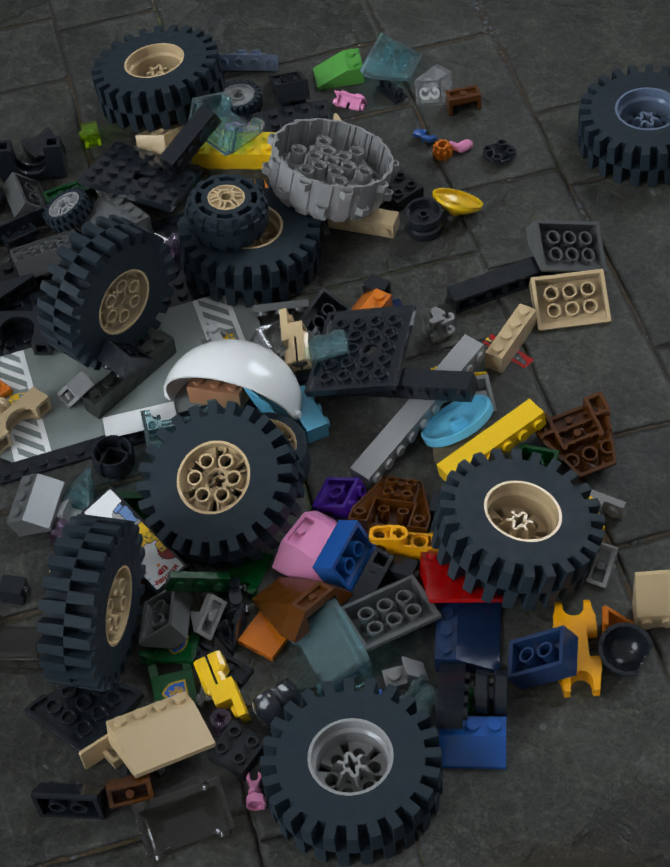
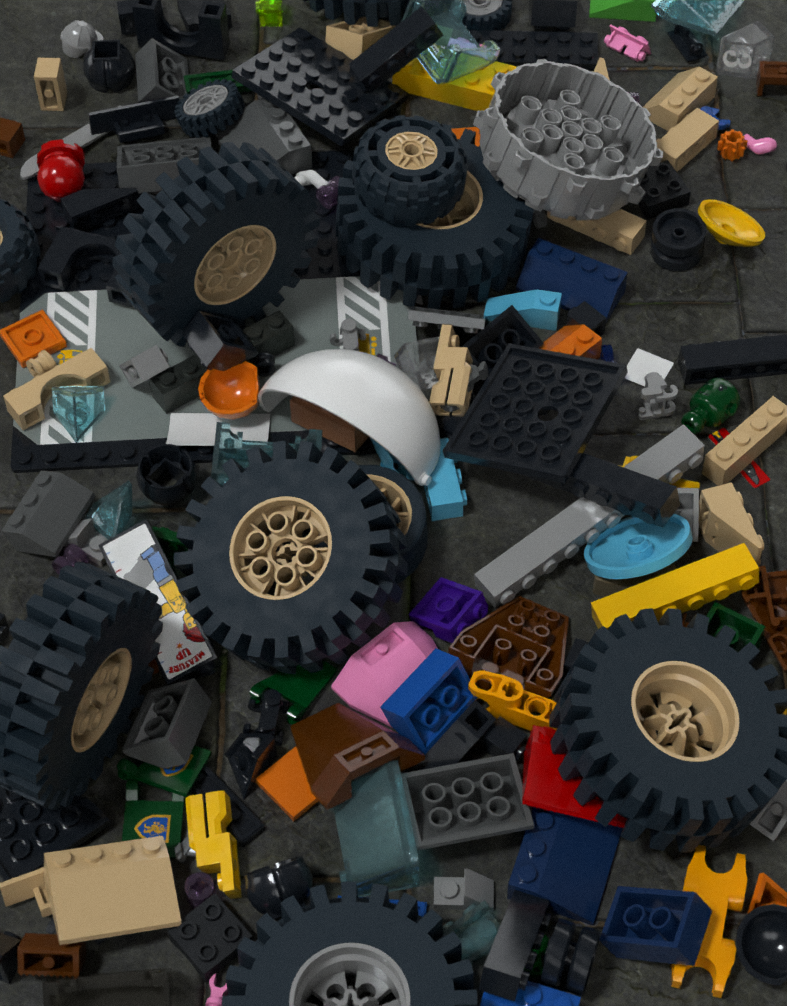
camera: 10 degrees right, 5 degrees up
(34, 429) = (78, 407): none -> clear light blue slope
(143, 391) = (230, 392): none -> orange cylinder
(159, 369) = (265, 364): none -> black bush
(197, 581) = (222, 685): dark green plate -> none
(207, 619) = (223, 739): light grey slope -> none
(328, 345) = (493, 394): clear light blue bracket -> none
(341, 285) = (536, 307): none -> medium azure slope
(356, 262) = (573, 275): none -> dark blue slope
(400, 127) = (681, 96): none -> tan slope
(411, 152) = (688, 138): none -> tan brick
(424, 305) = (645, 363): none -> white sticker
(480, 319) = (711, 405): none -> dark green piece
(511, 389) = (726, 521): none -> tan slope

